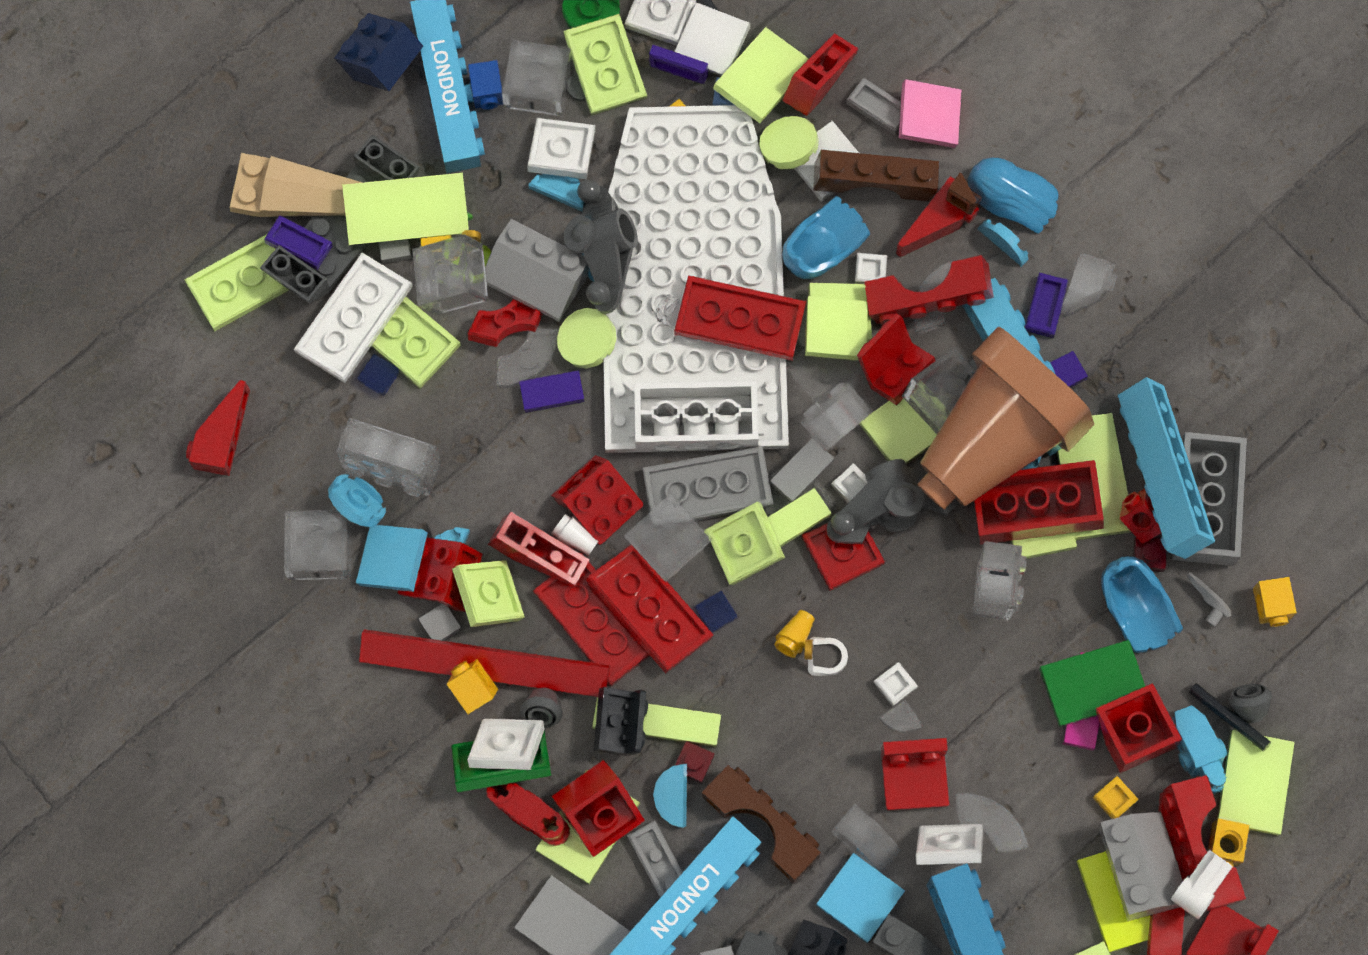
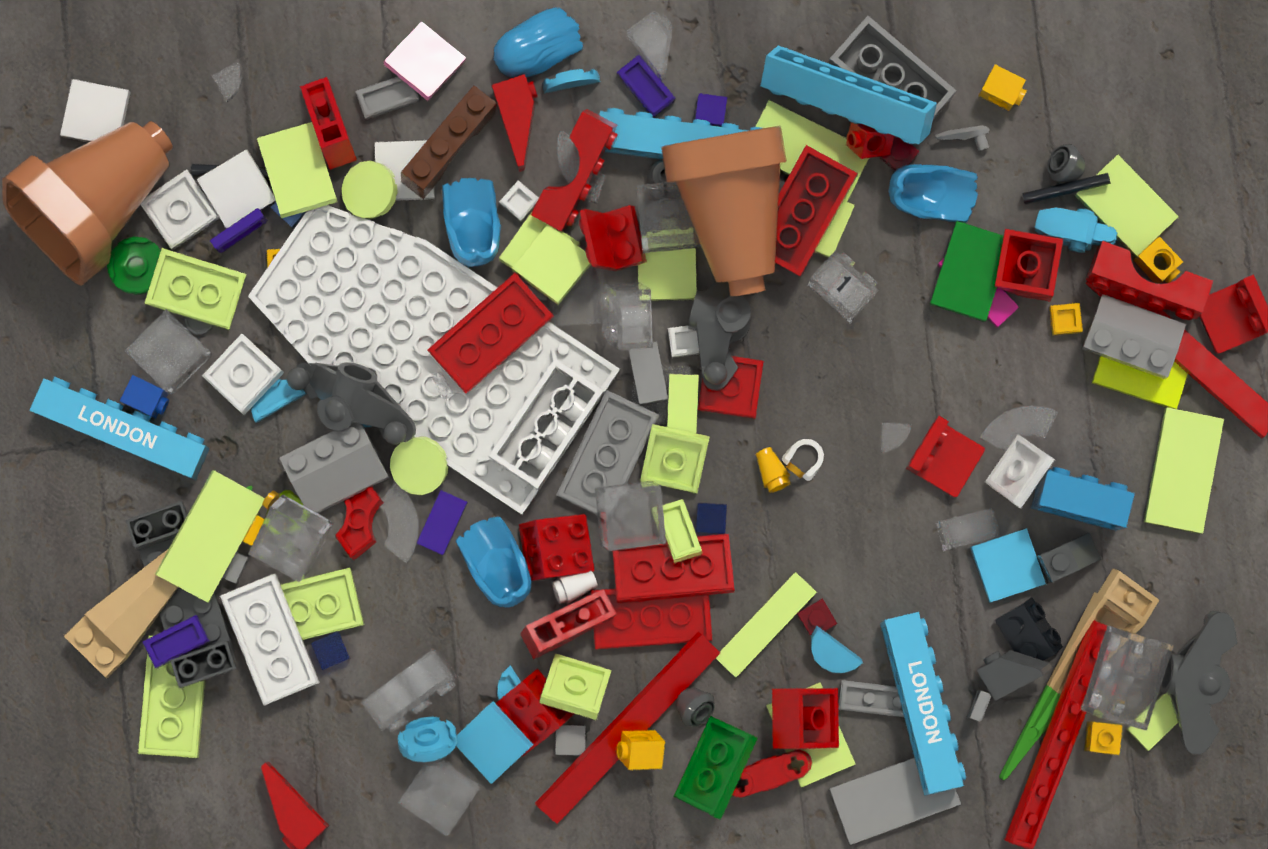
camera: 55 degrees left, 10 degrees up
(378, 51) = (56, 466): dark blue brick -> none
(506, 744) = (706, 755): white tile -> none
(548, 456) = (496, 562): none -> dark azure hair
(620, 721) = (750, 654): black bracket -> none
(685, 590) = (680, 532): none -> yellowish green tile
(733, 795) = (938, 593): reddish brown arch -> none
(895, 684) = (863, 421): white tile -> none
(962, 196) = (518, 87): reddish brown slope -> none
(1197, 890) = (1186, 313): white piece -> none

